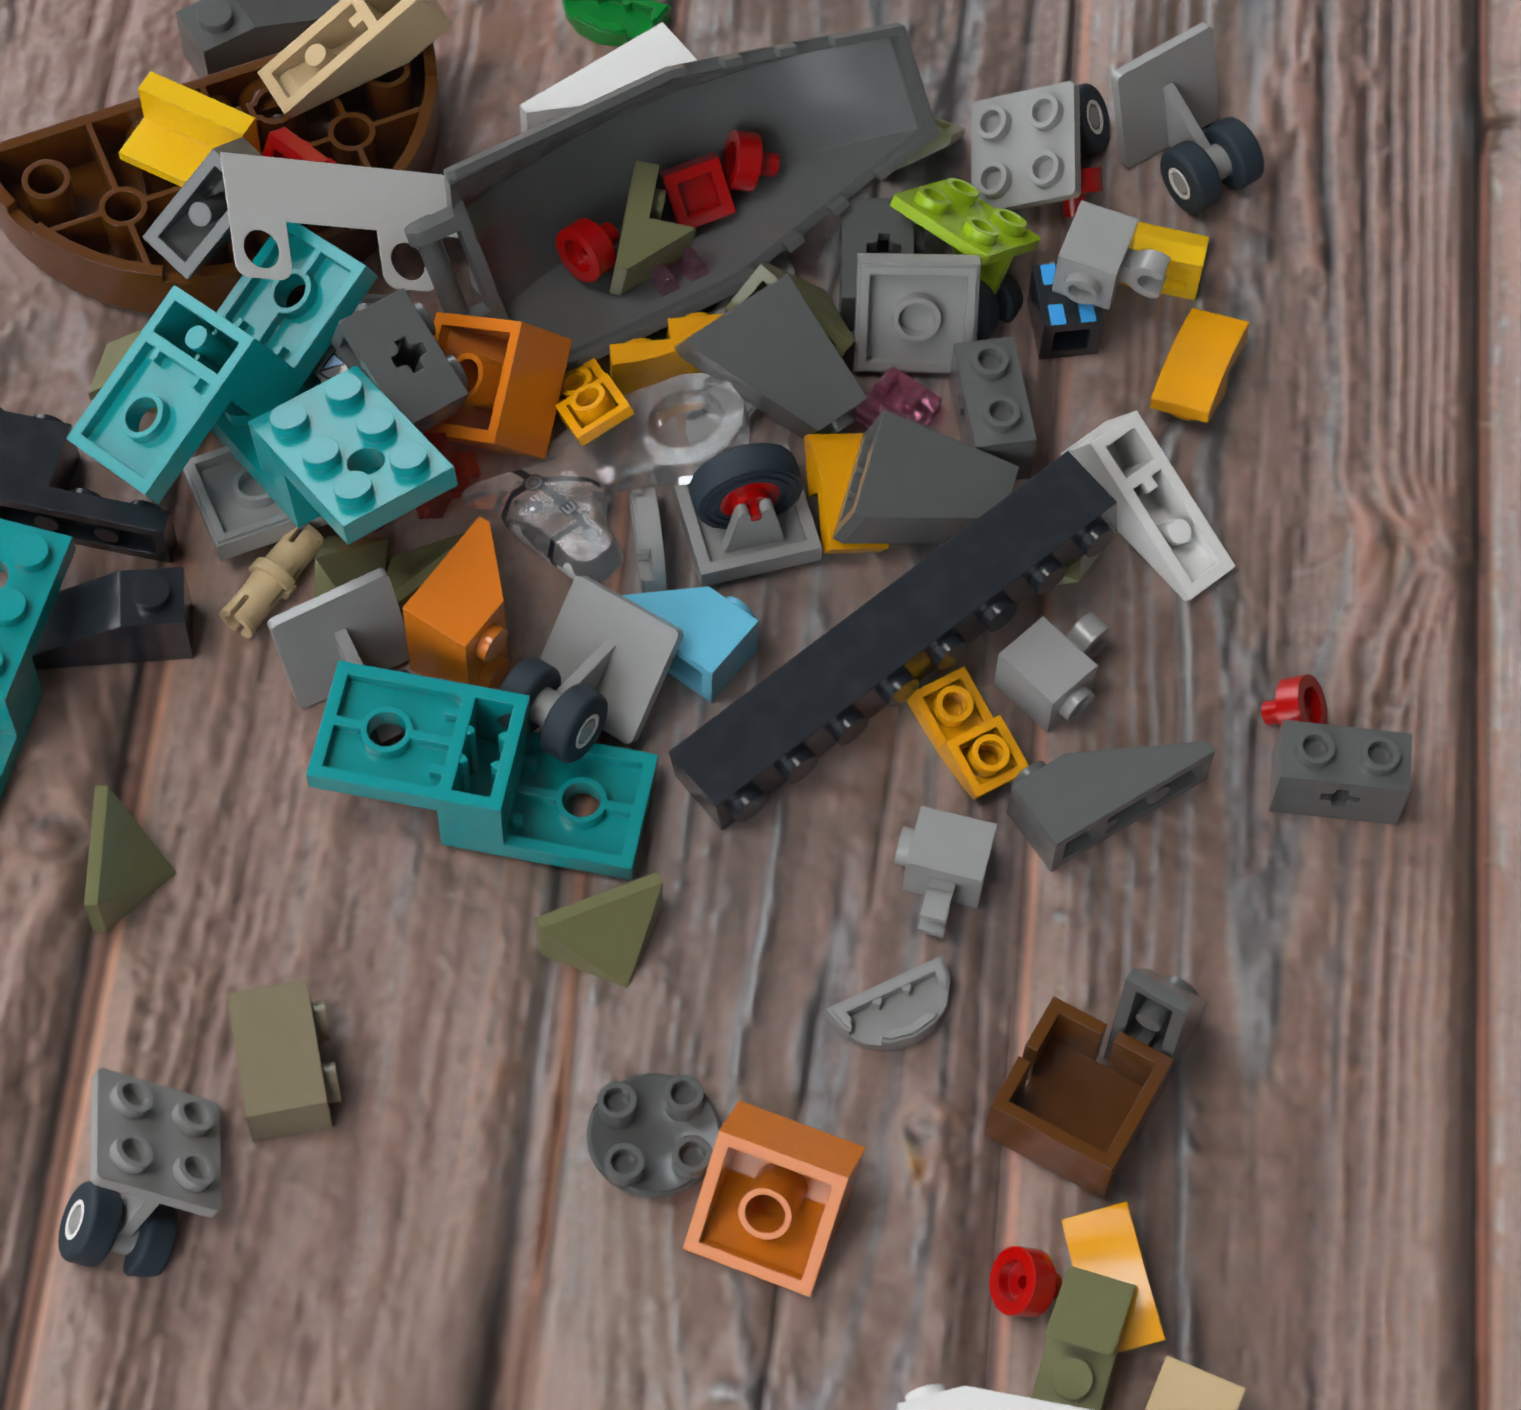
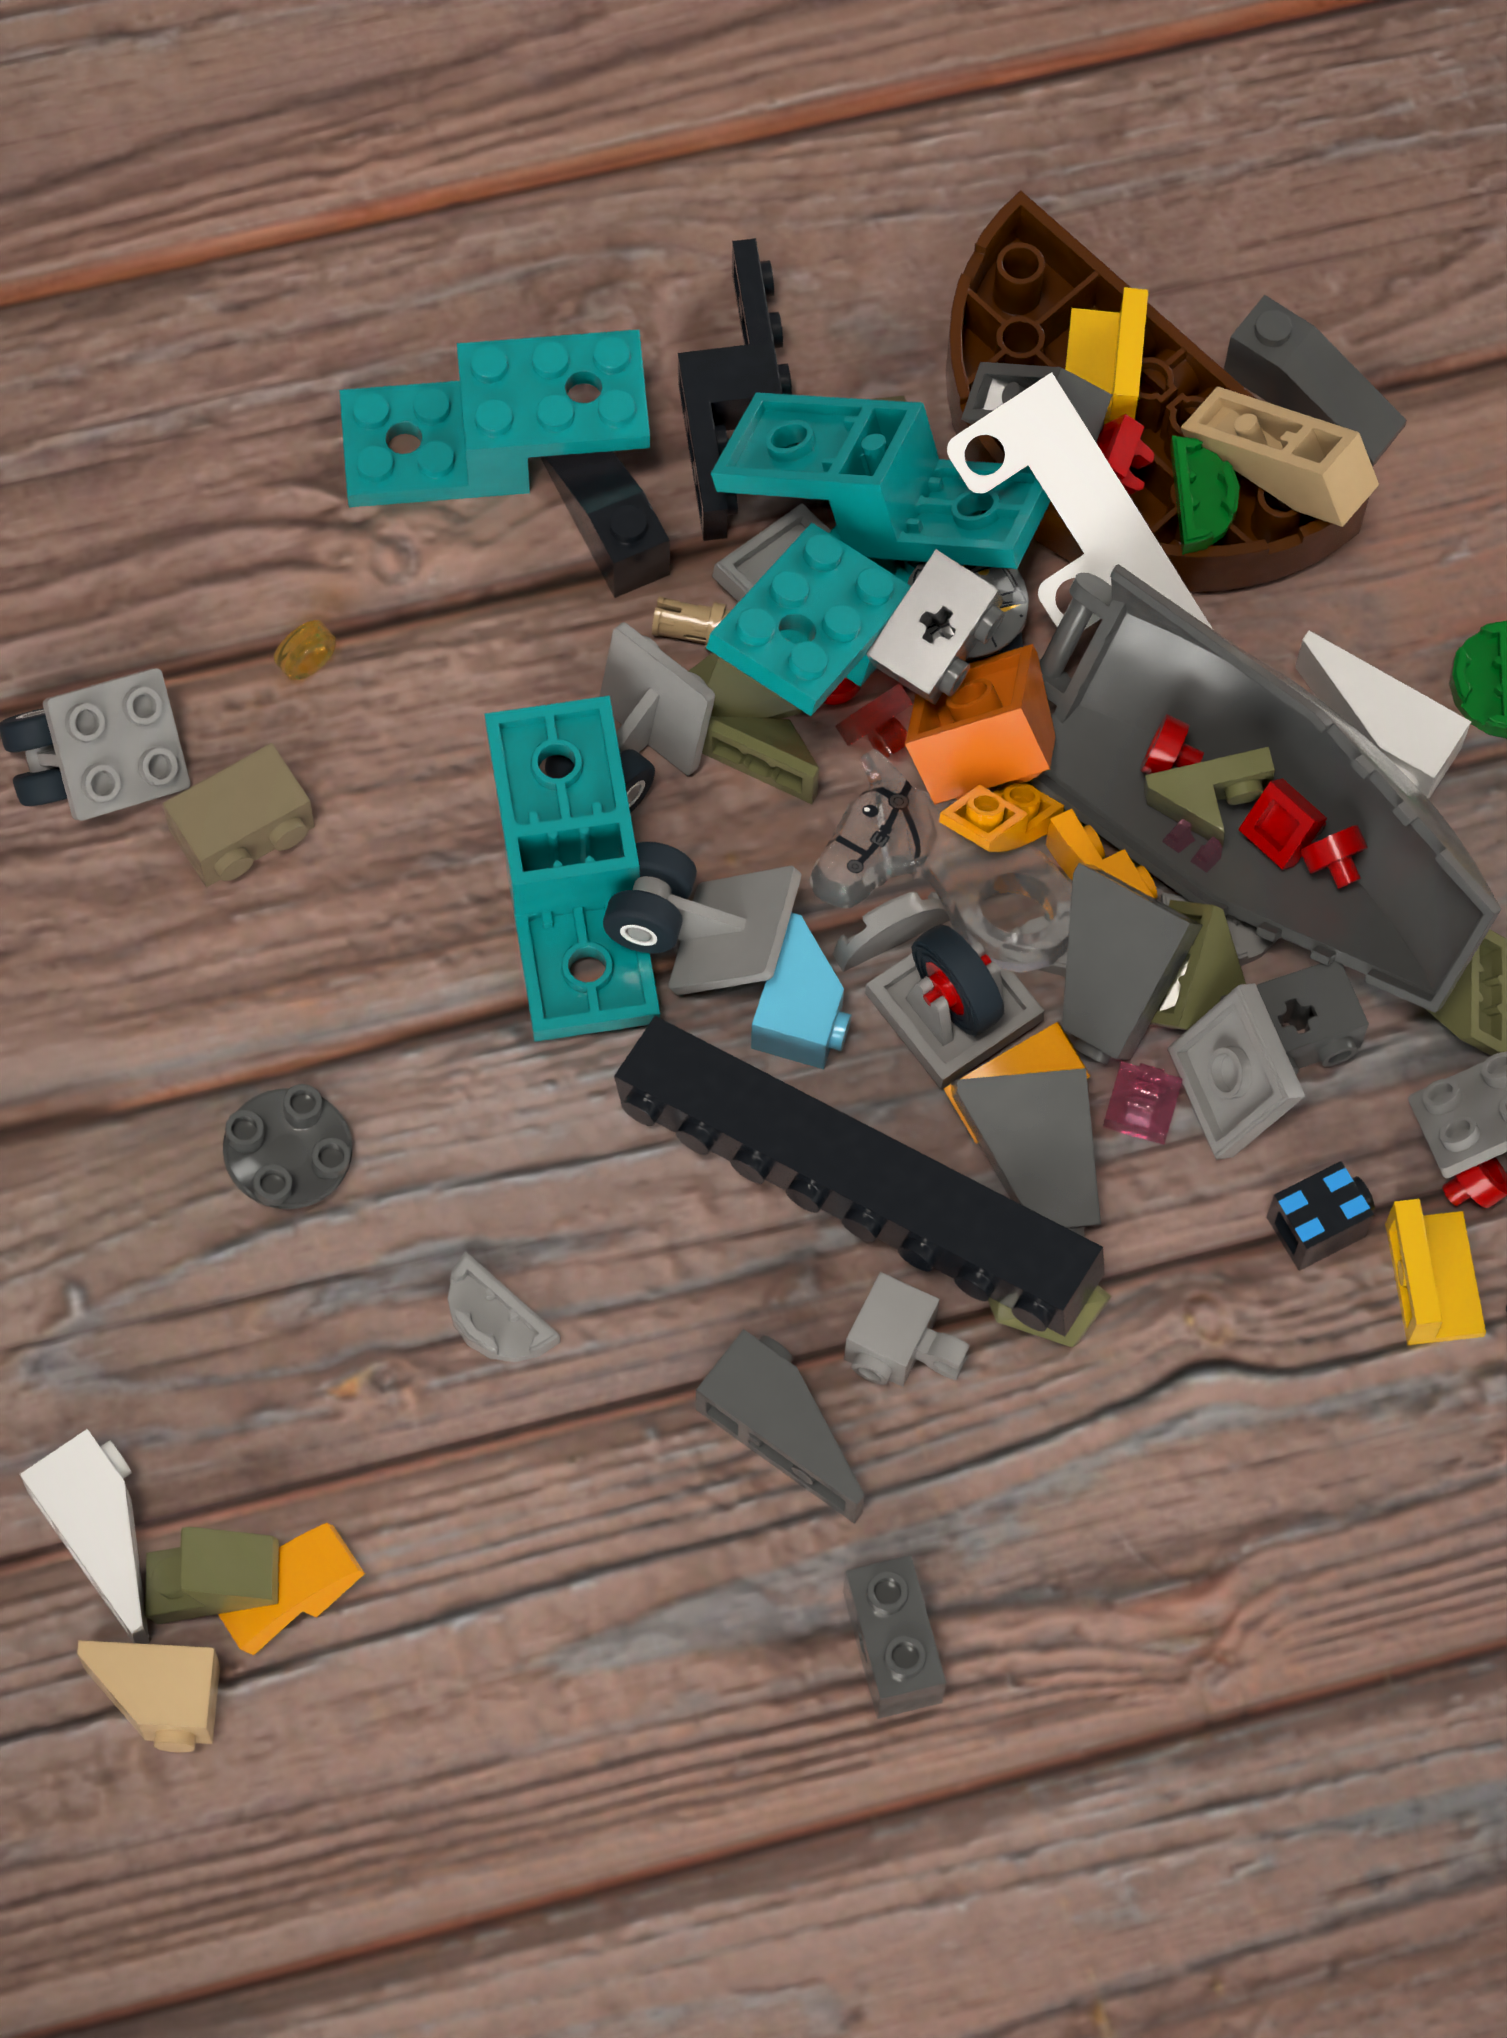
camera: 70 degrees right, 5 degrees up
(121, 863) = (380, 613): olive slope -> none
(127, 940) = (305, 650): none -> clear yellow tile
(359, 121) = (1204, 493): none -> green tile
(459, 615) = (726, 792): orange slope -> none
(605, 931) = (469, 1039): olive slope -> none
(773, 1197) = (262, 1266): orange slope -> none
(944, 862) = (653, 1305): light grey brick -> none
(966, 735) = (805, 1283): light orange slope -> none
(974, 228) = (1354, 1095): lime plate -> none
(993, 401) = (1166, 1183): dark grey brick -> none
(1023, 1282) = (256, 1508): red tile -> none
(1073, 1109) = (443, 1503): reddish brown piece -> none
(1101, 255) = (1363, 1213): light grey brick -> none
(1153, 504) = (1123, 1368): white slope -> none
(1158, 1013) = (548, 1534): dark grey slope -> none
(1199, 365) = (1308, 1363): light orange slope -> none
(1296, 700) = (955, 1580): red tile -> none

